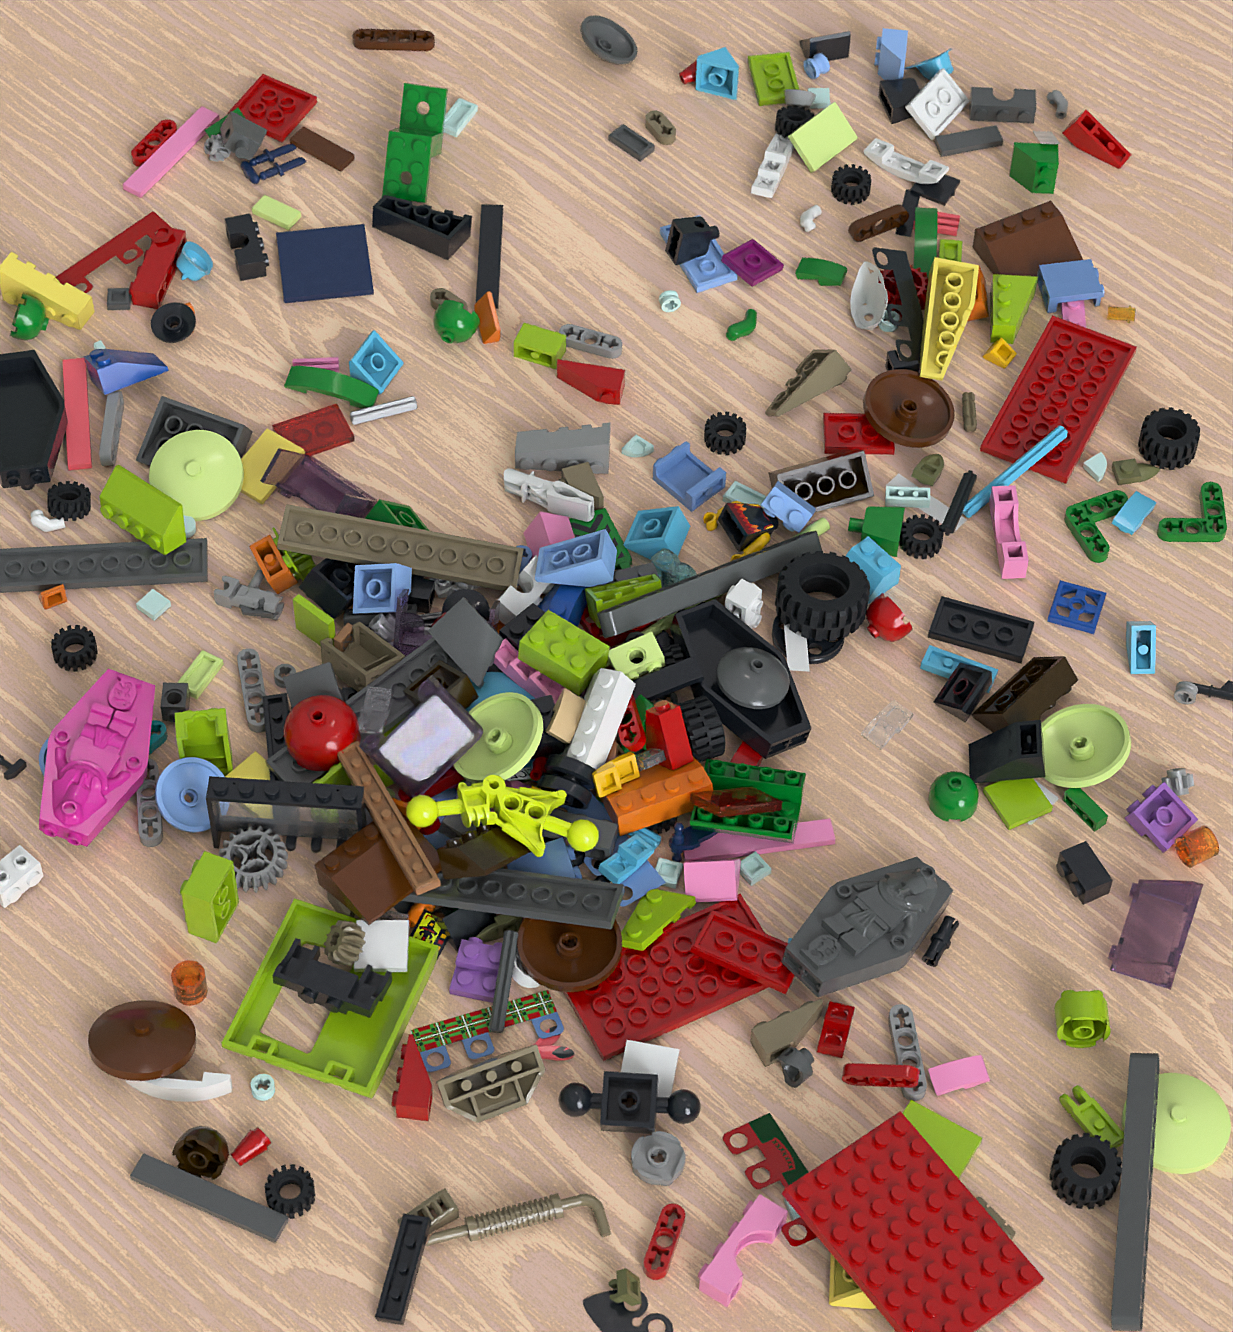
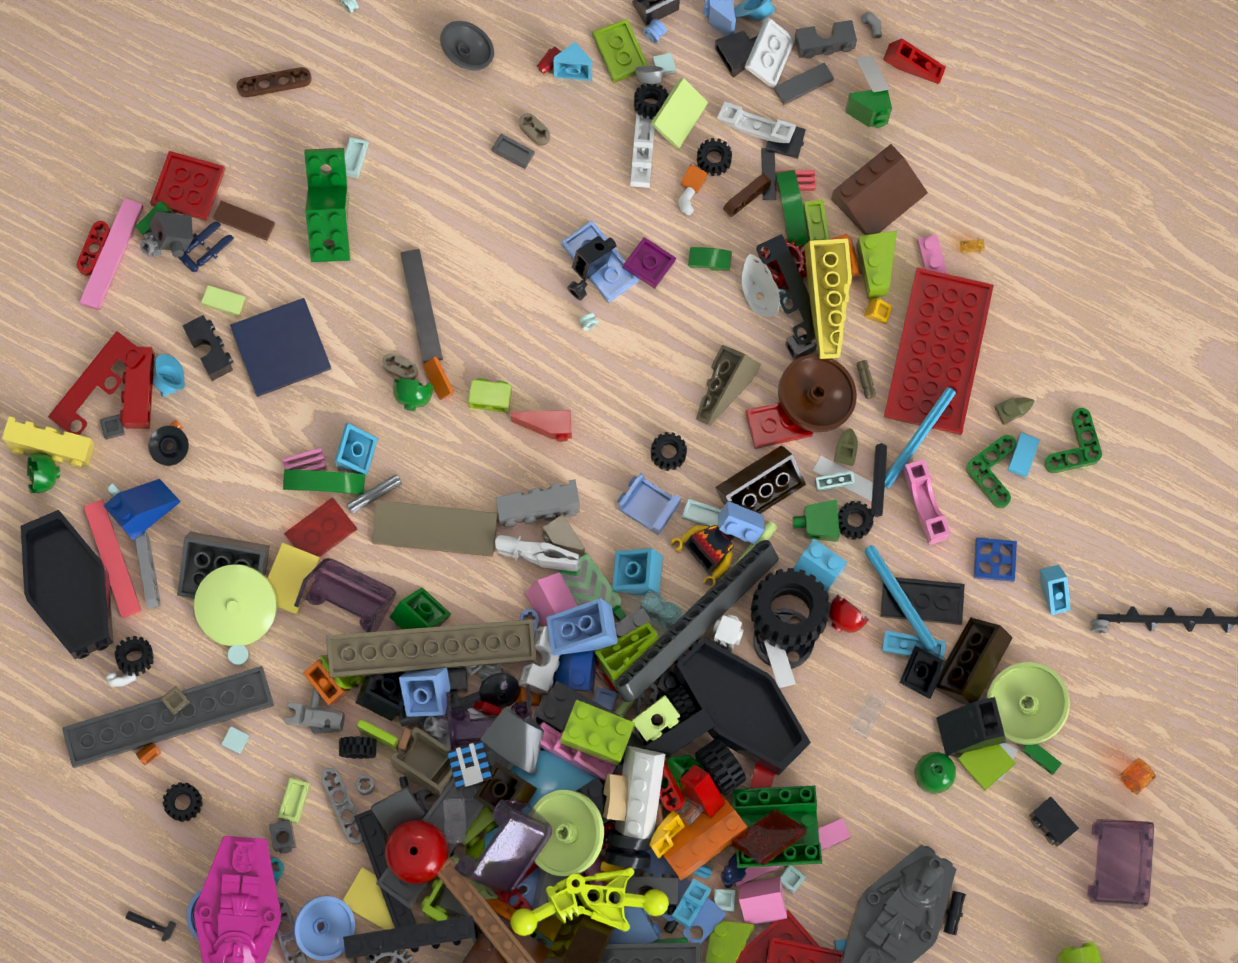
camera: 15 degrees left, 20 degrees up
(99, 548) = (175, 700): none -> dark tan tile
(143, 511) = (202, 659): lime slope -> none
(205, 736) = (321, 880): lime piece -> none
(287, 631) = (357, 747): none -> black tyre
(408, 659) = (469, 764): none -> sticker
(421, 226) = (356, 292): black wedge -> none
(441, 452) = (434, 528): none -> dark tan arch
(596, 348) = (537, 372): light grey beam -> none
(637, 447) = (598, 481): light aqua tile -> none
(665, 271) = (577, 290): none -> black tile
(743, 327) = (659, 334): green arm -> none
(752, 678) = (748, 720): dark grey dish -> none
(825, 198) = (694, 178): none -> orange slope
(954, 614) = (900, 597): none -> medium azure axle
(1069, 283) = (923, 225): medium blue panel -> none
(1096, 466) = (983, 411): light aqua tile -> none
(1160, 816) = (1103, 753): medium lavender plate -> none
(1172, 425) = (1041, 358): black tyre -> none
(1179, 781) = (1110, 717): light grey gear -> none

